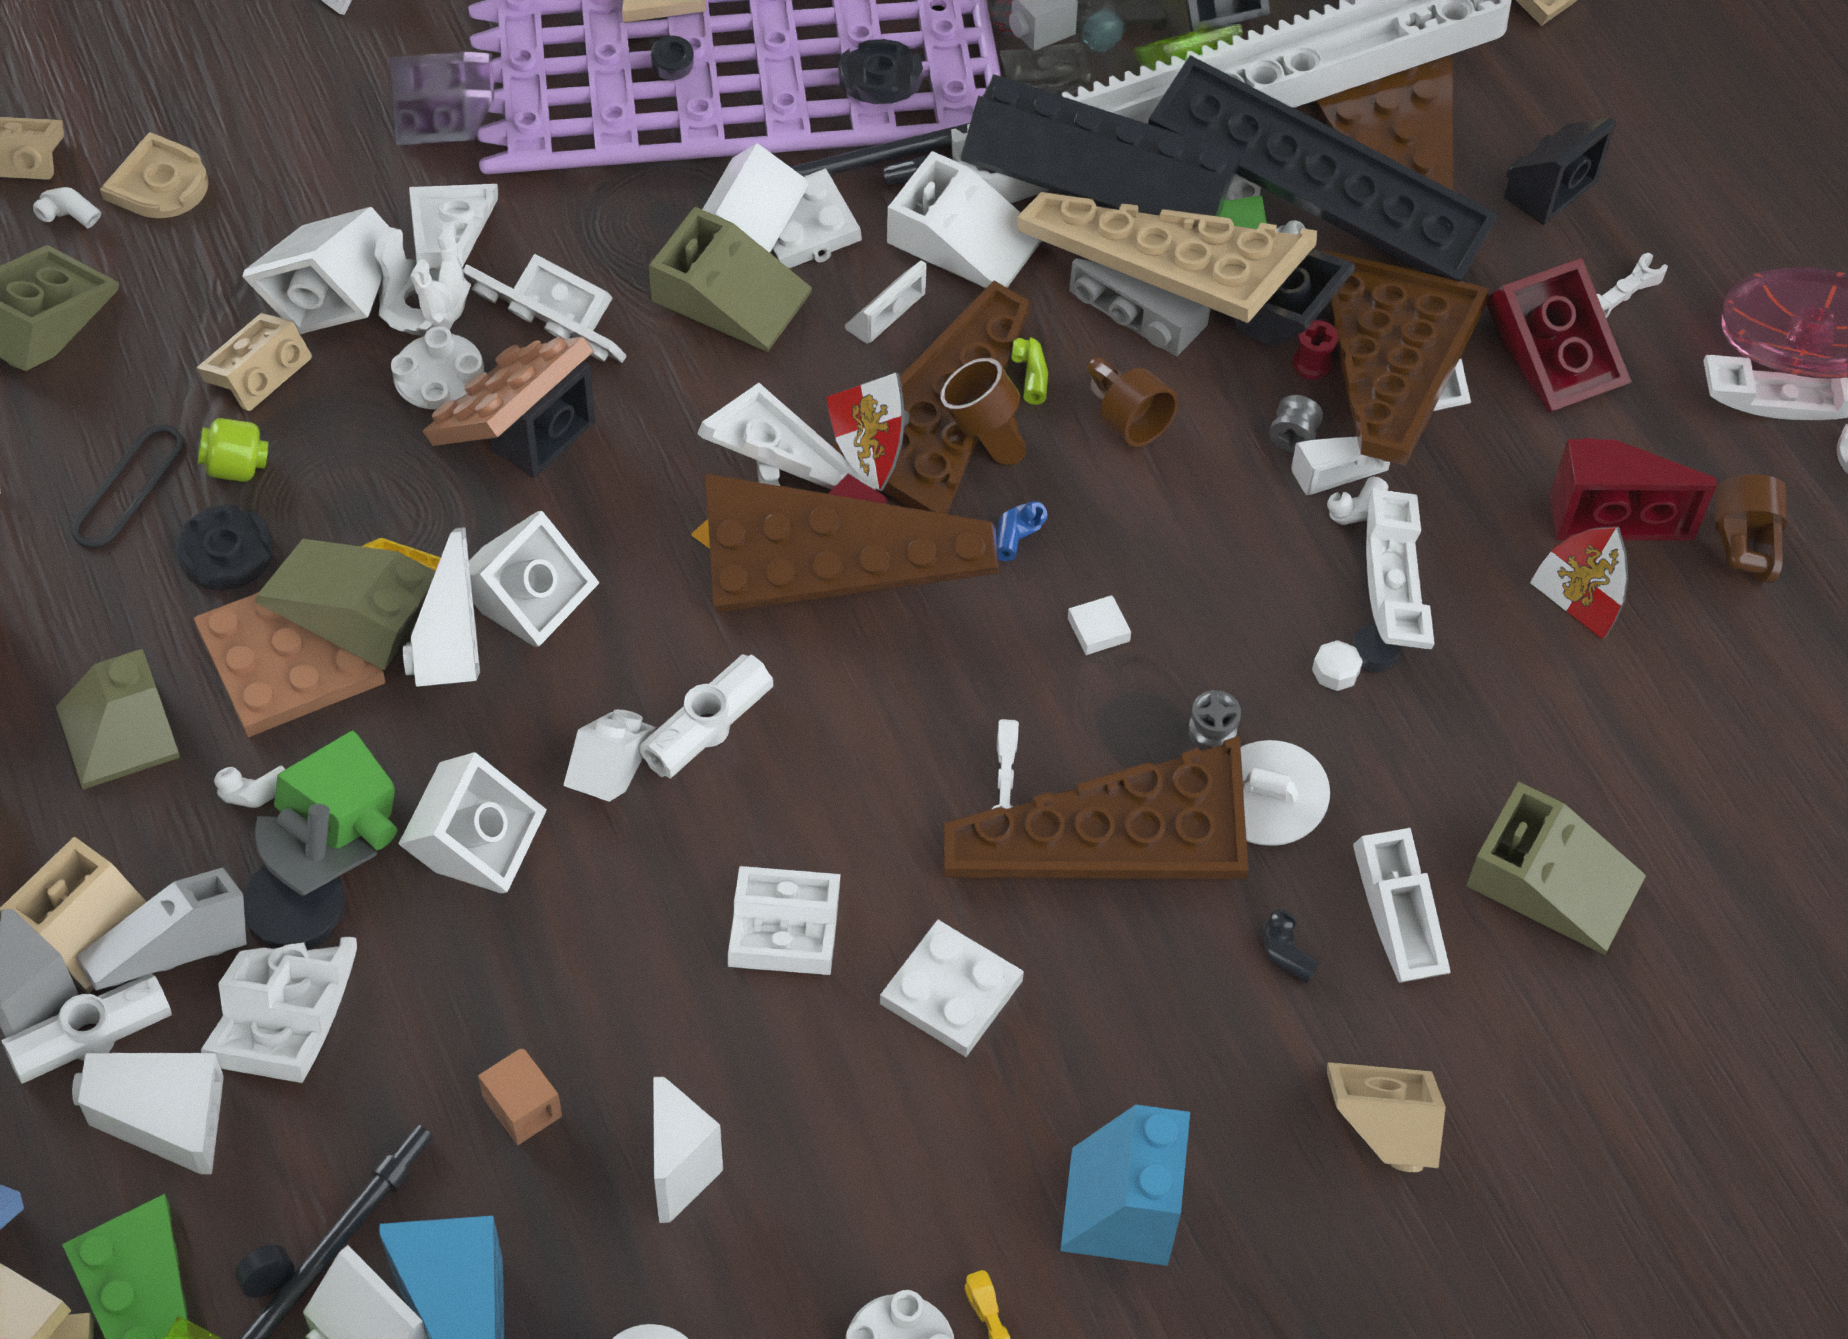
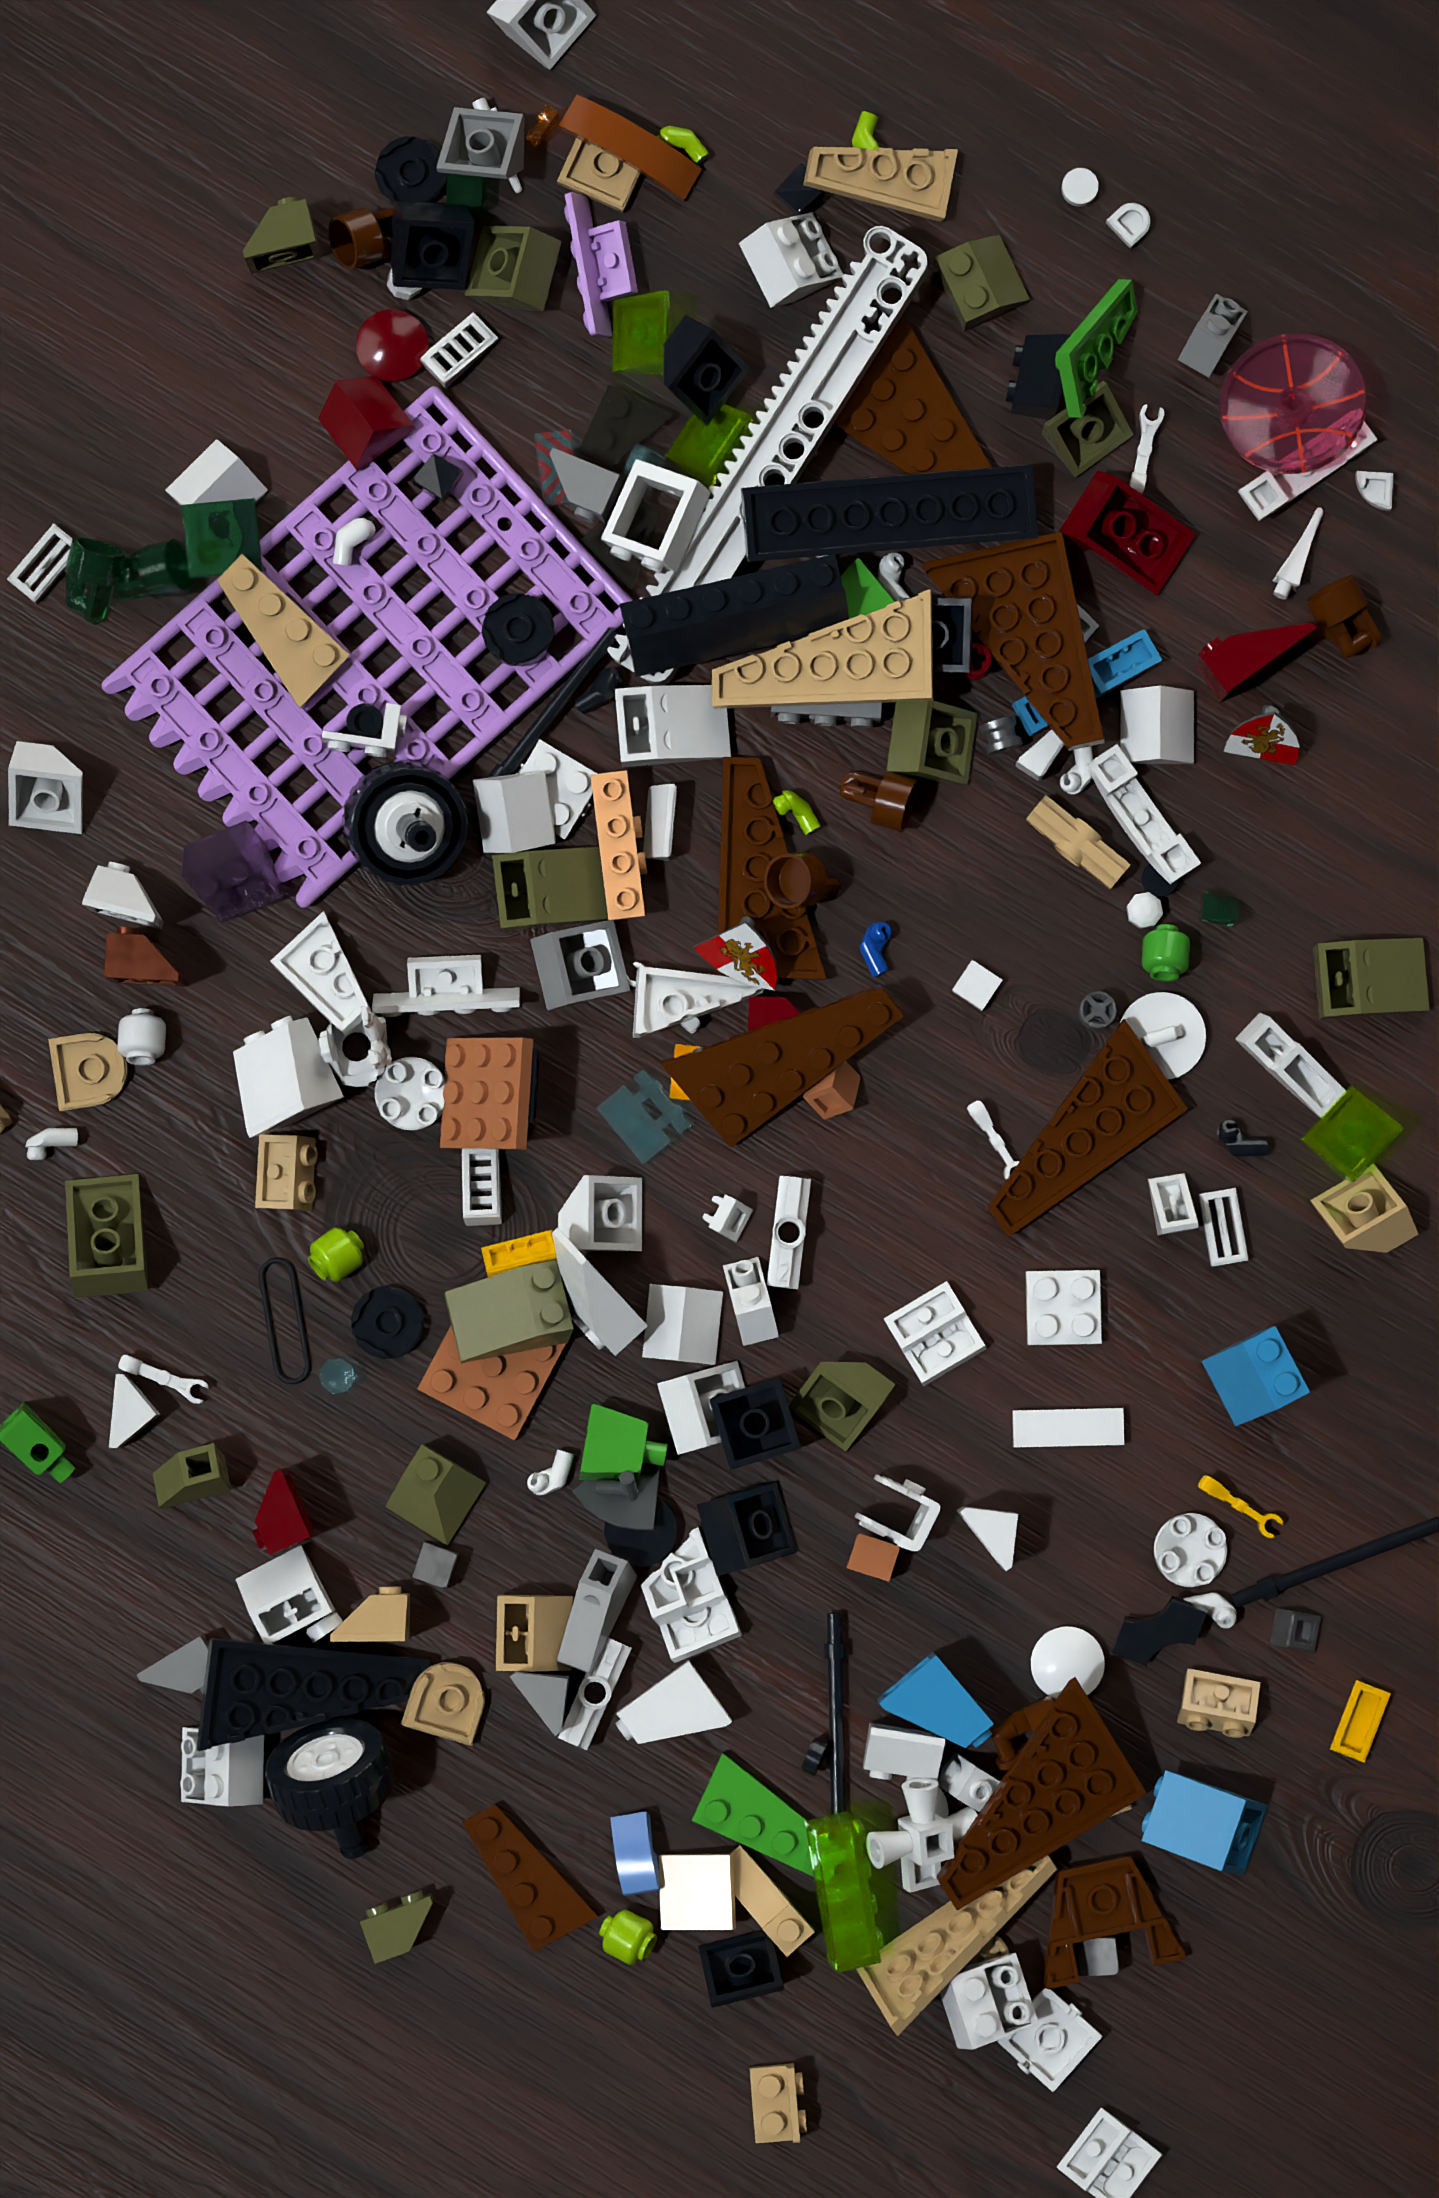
camera: 30 degrees left, 30 degrees up
(51, 796) = (435, 1565): none -> flat silver slope
(127, 557) = (337, 1376): none -> clear light blue tile
(232, 174) = (141, 1037): none -> white head
(284, 106) = (137, 960): none -> copper slope
(319, 59) = (121, 896): none -> white slope
(406, 971) = (746, 1528): none -> black slope
(420, 513) = (487, 1216): none -> white slope
(510, 864) = (754, 1423): none -> black slope
(523, 733) = (682, 1324): none -> white slope
(604, 1092) = (921, 1523): none -> white piece
(625, 909) = (841, 1399): none -> olive slope
(633, 526) = (633, 1122): none -> clear light blue plate
(636, 142) = (405, 822): none -> black wheel
(657, 664) = (729, 1217): none -> white tile
(675, 75) = (393, 726): none -> white bracket
(701, 356) = (580, 964): none -> light grey slope
(828, 283) = (618, 846): none -> light nougat bracket
(859, 1115) = (1068, 1427): none -> white tile
(867, 616) = (834, 1092): none -> nougat panel
(1086, 50) = (681, 528): none -> white window
(1155, 964) = (1172, 1204): none -> white slope
(1186, 1058) = (1209, 1232): none -> white tile
(1222, 387) = (932, 742): none -> olive slope
(1309, 560) = (1077, 842): none -> tan piece
(1332, 710) = (1165, 953): none -> bright green head
(1419, 709) = (1218, 909): none -> clear green slope
(1426, 1014) = (1351, 1135): none -> clear neon green slope
(1449, 436) = (1108, 671): none -> dark azure slope
(1476, 513) = (1157, 725): none -> white slope
(1547, 76) = (980, 280): none -> olive slope
(1576, 225) = (1089, 438): none -> olive slope
(1632, 151) = (1092, 345): none -> bright green wing
(1701, 69) = (1079, 187): none -> white tile
(1727, 461) = (1291, 571): none -> white piece
(1733, 120) = (1130, 223): none -> white tile
(1761, 233) = (1212, 335): none -> light grey slope

